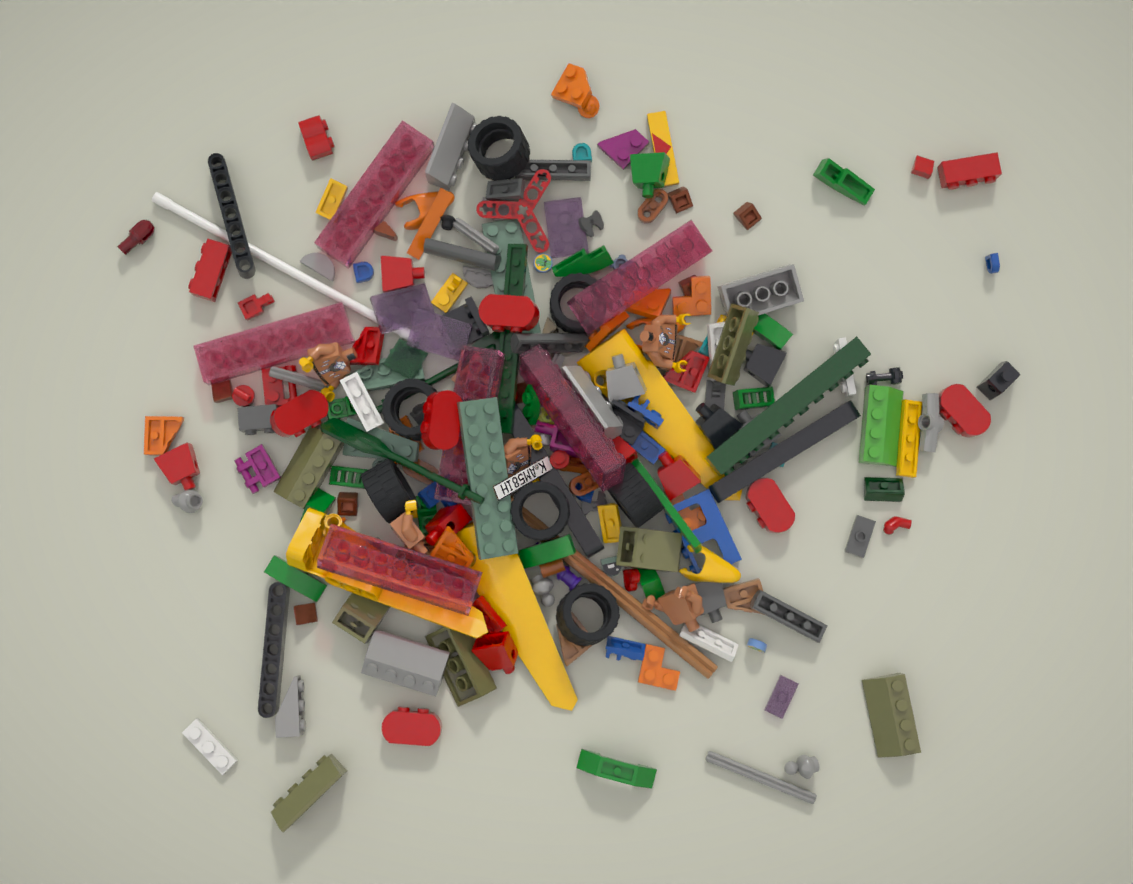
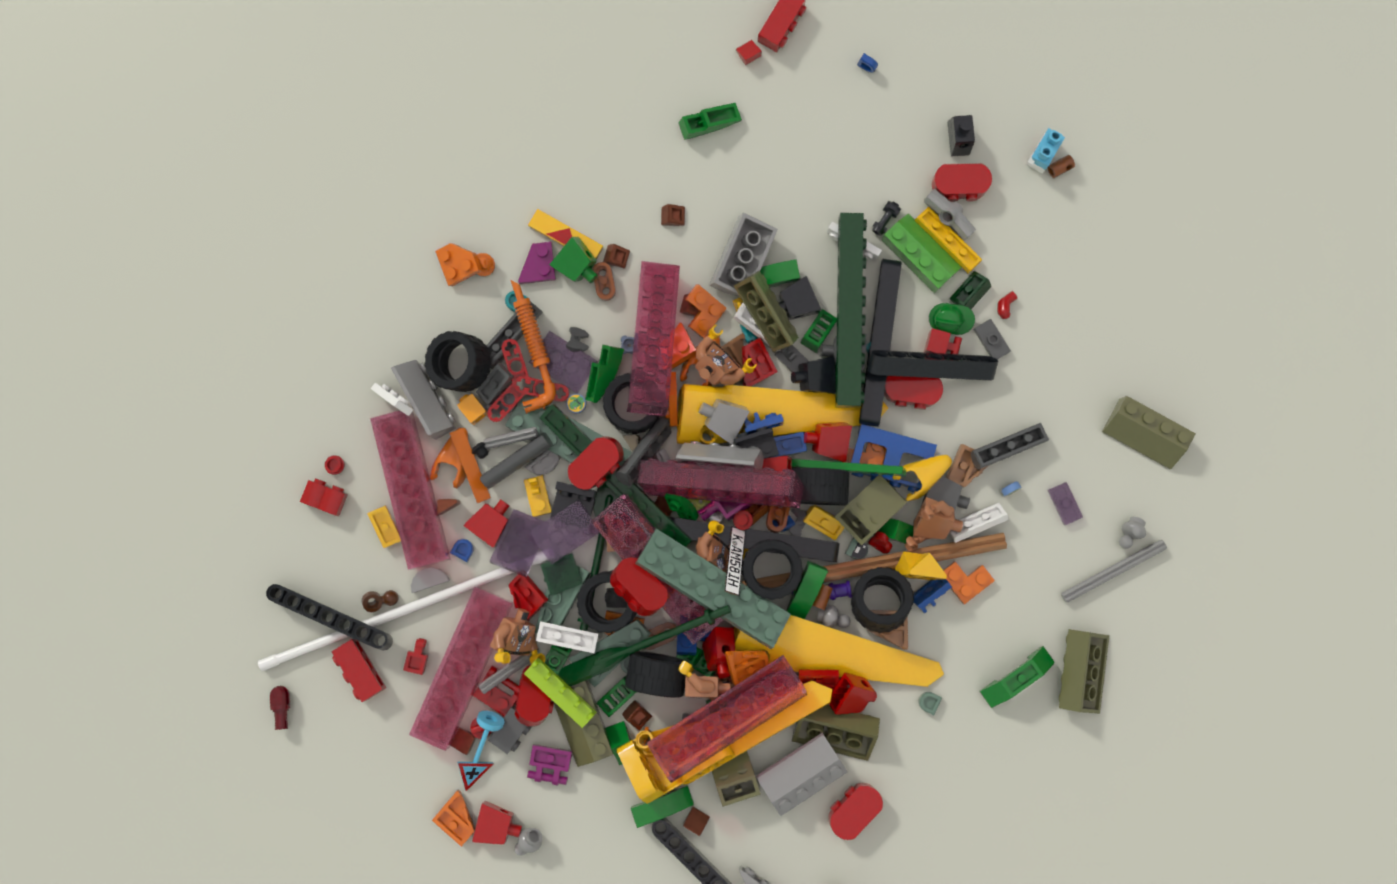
camera: 45 degrees left, 0 degrees up
(207, 417) = (474, 770): none -> medium azure piece
(282, 248) = (389, 598): none -> reddish brown plate
(316, 430) = (560, 692): none -> lime hinge
(346, 125) = (334, 465): none -> red plate
(431, 123) = (393, 398): none -> white plate
(473, 189) = (472, 408): none -> light orange brick
(541, 717) = (929, 702): none -> sand green tile
(557, 199) = (536, 348): none -> orange piece
(636, 622) = (920, 566): none -> yellow slope
(663, 817) = (1083, 671): none -> olive slope
(800, 505) = (932, 365): none -> black beam
(821, 497) = (939, 342): none -> red brick
(849, 491) = (952, 318): none -> green piece
(1042, 477) = (1061, 166): none -> dark orange piece
(1043, 455) = (1045, 150): none -> medium azure hips

